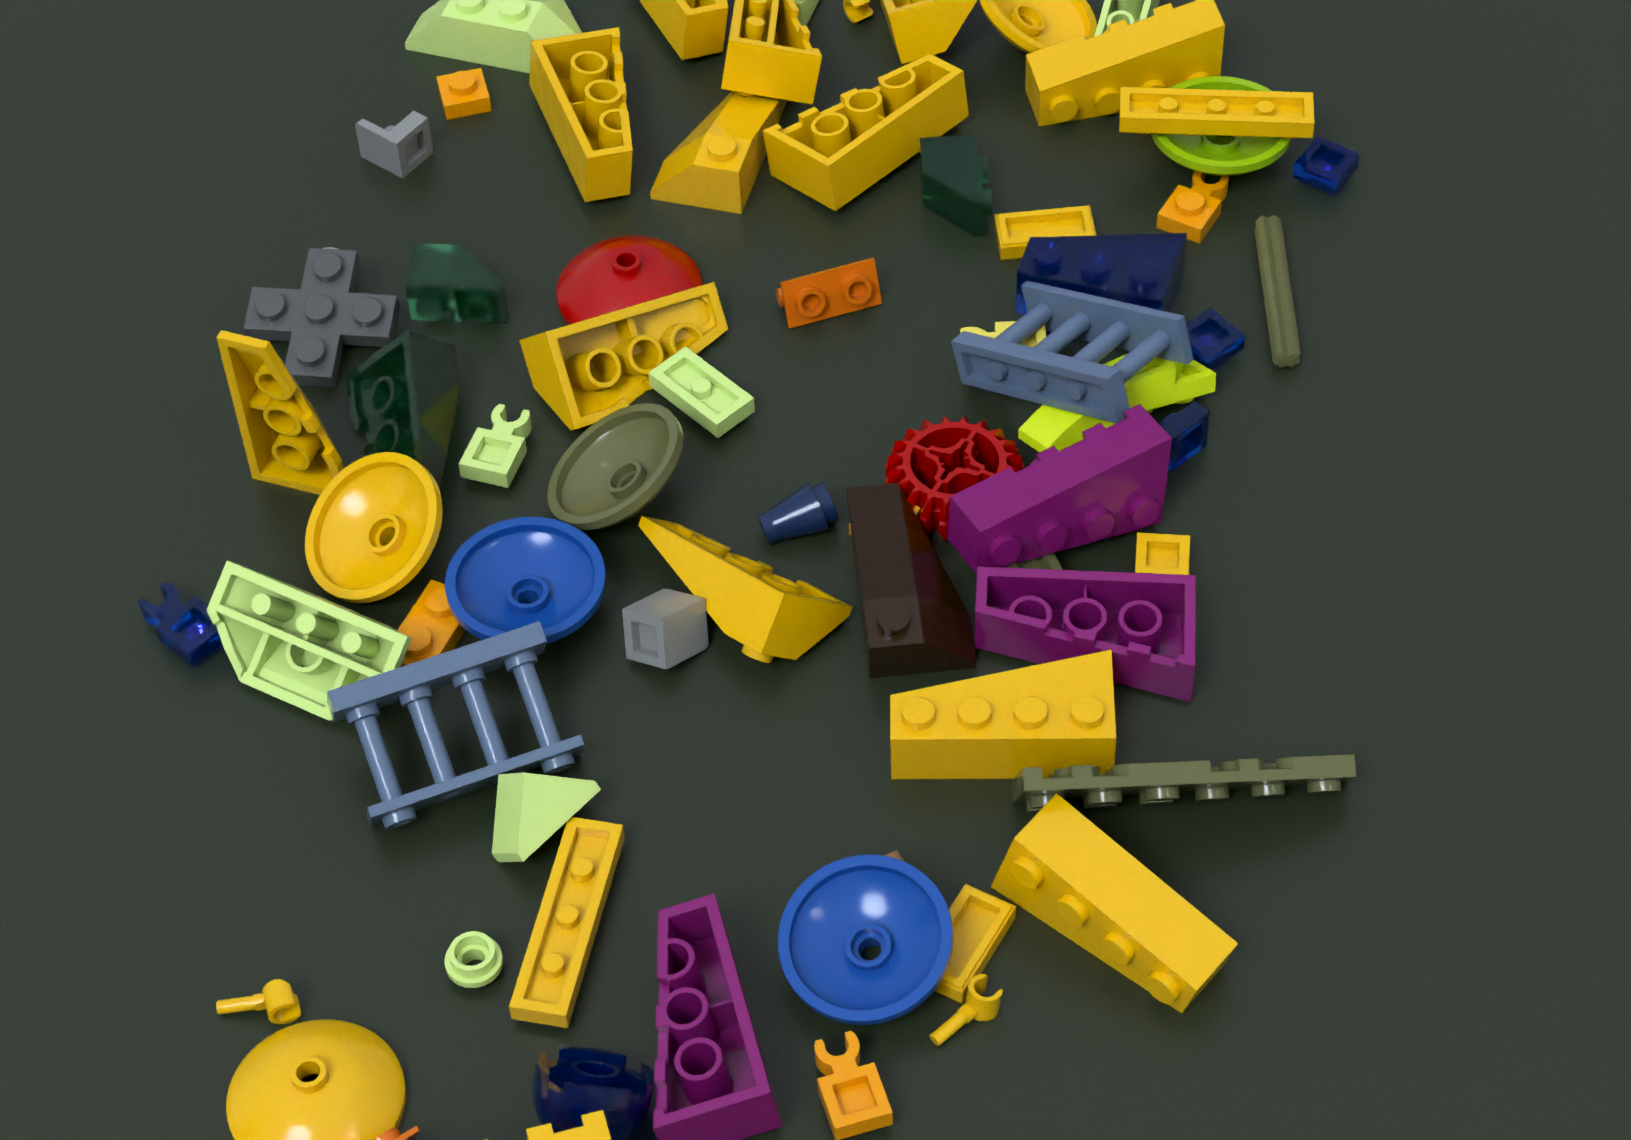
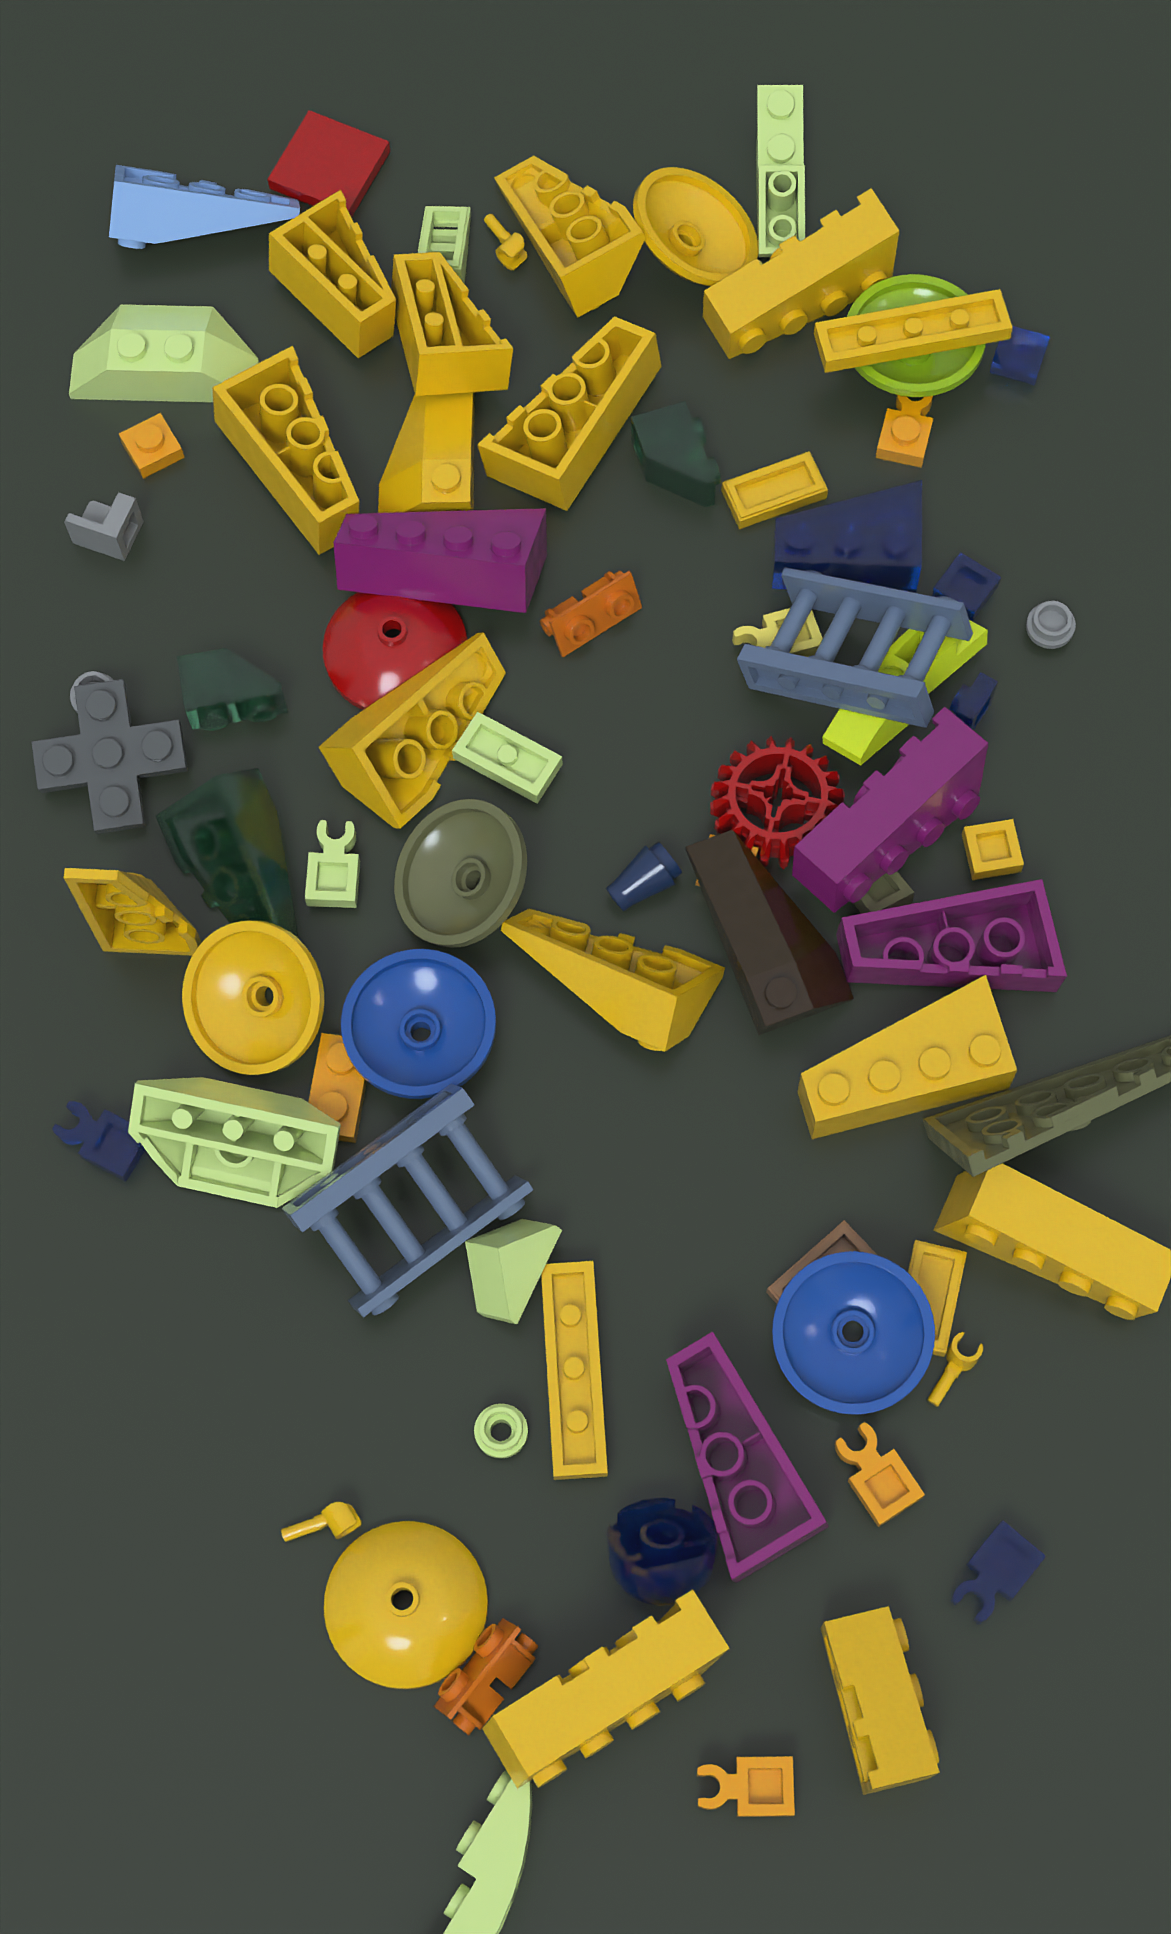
camera: 15 degrees left, 20 degrees up
(665, 628) = (561, 1036): light grey panel -> none
(700, 214) = (445, 556): none -> magenta wedge
(1277, 292) = (1012, 512): olive axle -> none
(1286, 387) = (1050, 625): none -> light grey plate

